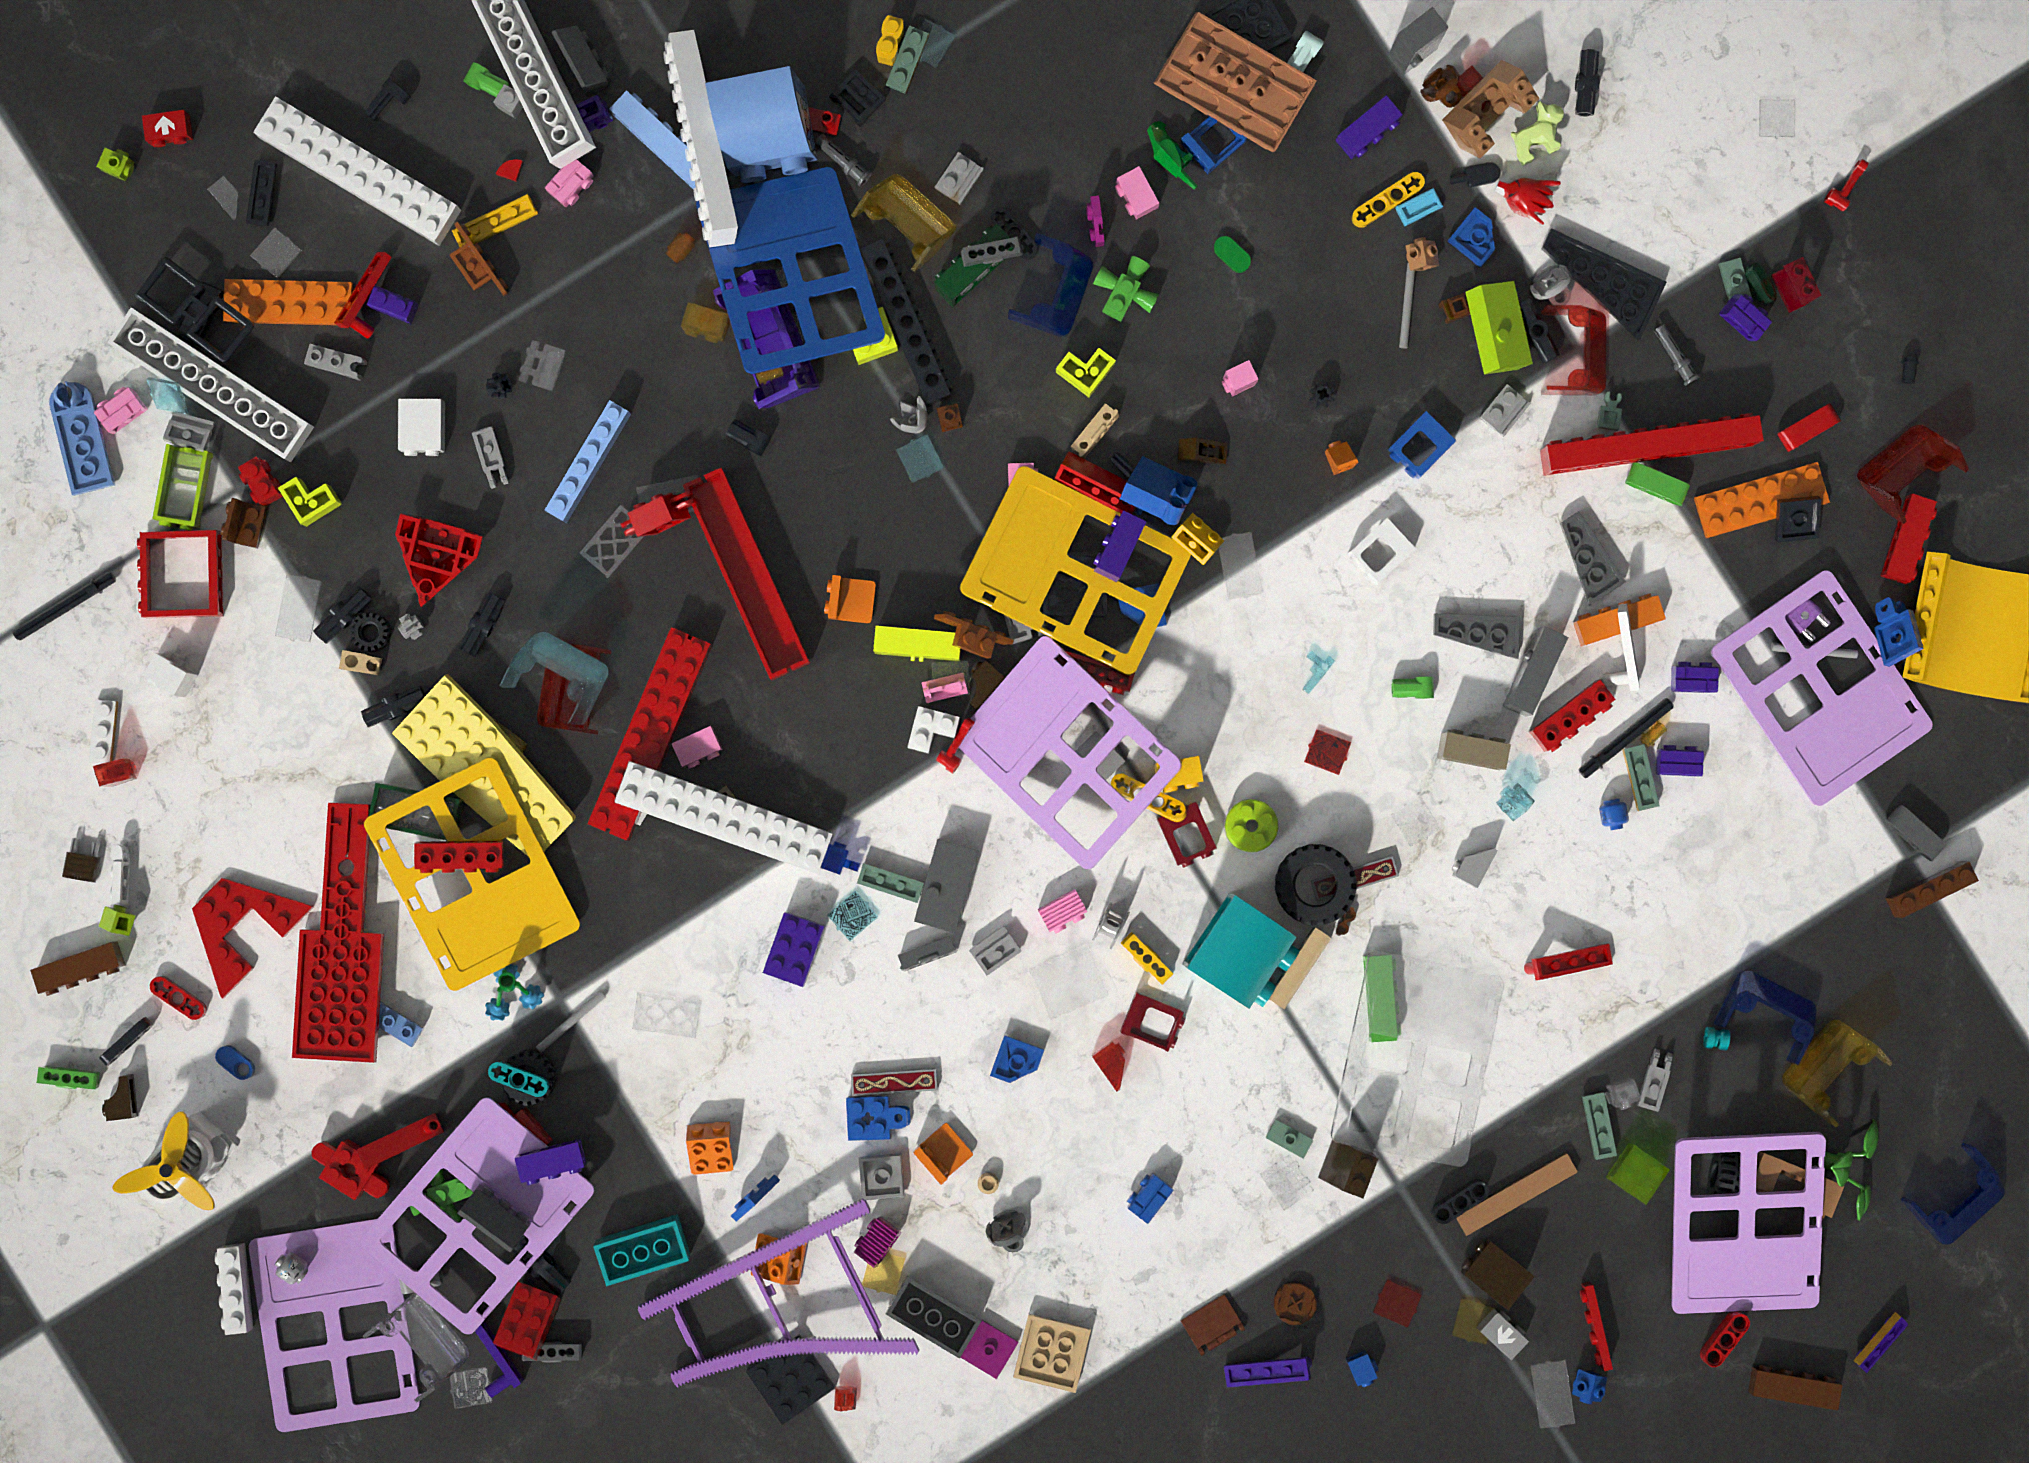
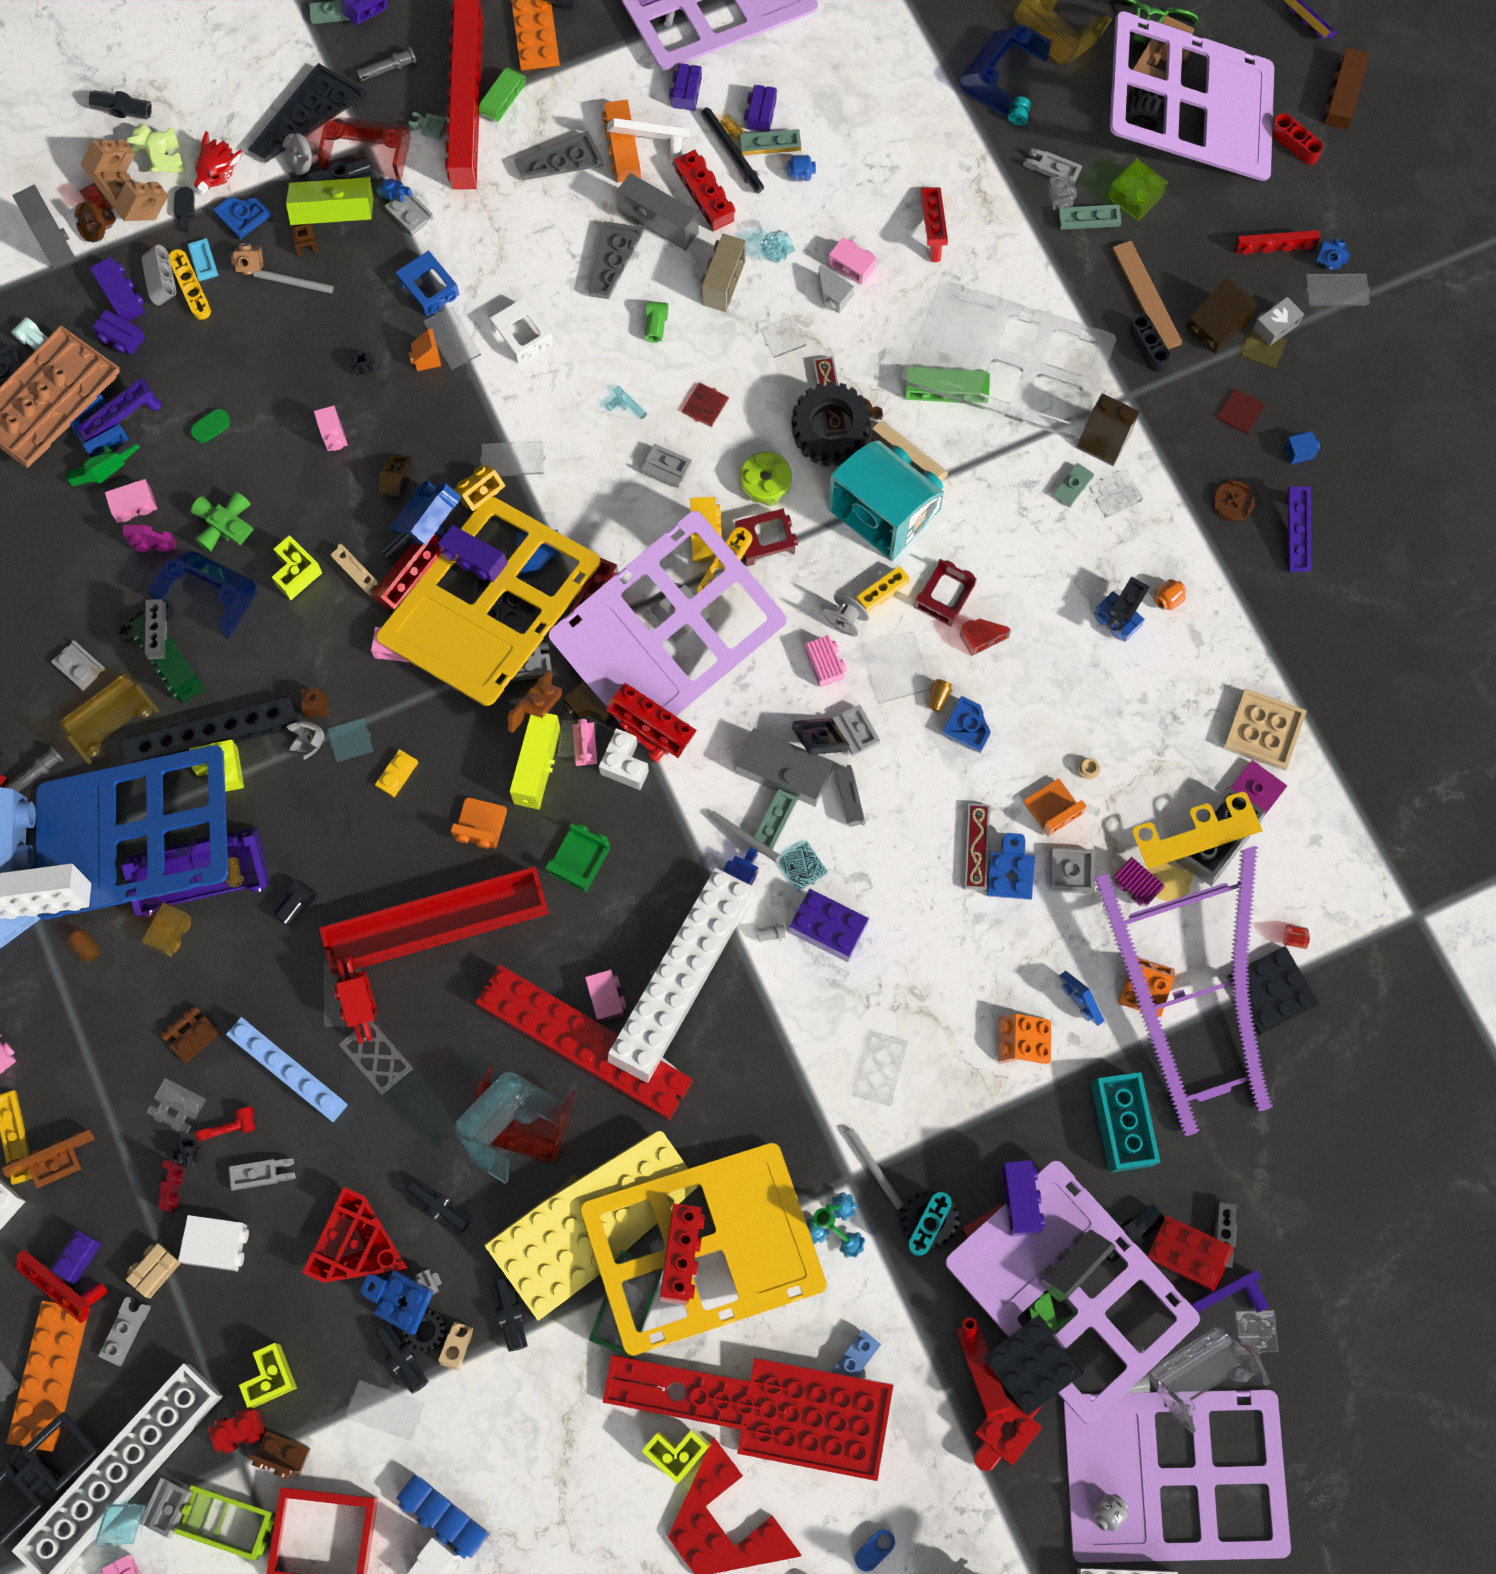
camera: 85 degrees left, 15 degrees down
(213, 676) = (443, 1516): none -> blue brick
(286, 875) = (675, 1459): none -> neon yellow brick
(391, 377) = (152, 1270): none -> tan brick
(398, 596) = (389, 1293): none -> blue plate
(403, 1186) = (1033, 1364): none -> black plate
(457, 377) = (169, 1186): none -> dark red wing
(535, 431) = (243, 1121): none -> red brick
(606, 368) = (192, 1040): none -> reddish brown plate
(780, 895) = (771, 933): none -> light grey pin
(830, 700) = (579, 857): none -> green panel
(870, 857) = (745, 837): none -> light grey bar
(891, 510) = (396, 773): none -> yellow plate
(926, 1302) = (1204, 837): none -> yellow piece
(972, 750) = (651, 720): none -> red brick
(980, 916) = (820, 736): none -> black plate
(1007, 1230) = (1138, 752): dark grey tile -> none
(1043, 1028) = (939, 694): none -> pearl gold cone
(1158, 1205) = (1127, 603): none -> black plate
(1180, 1247) = (1170, 594): none -> orange head
(1212, 1324) = (1248, 578): copper piece -> none
(1229, 159) = (119, 409): none -> dark purple piece
(1251, 723) = (666, 465): none -> light grey plate
(1321, 139) = (118, 332): none -> dark purple brick
(1366, 480) = (452, 338): none -> clear piece
(1391, 166) = (158, 275): none -> light grey beam
(1511, 882) = (852, 260): none -> bright pink brick
(1526, 389) = (393, 189): none -> blue plate

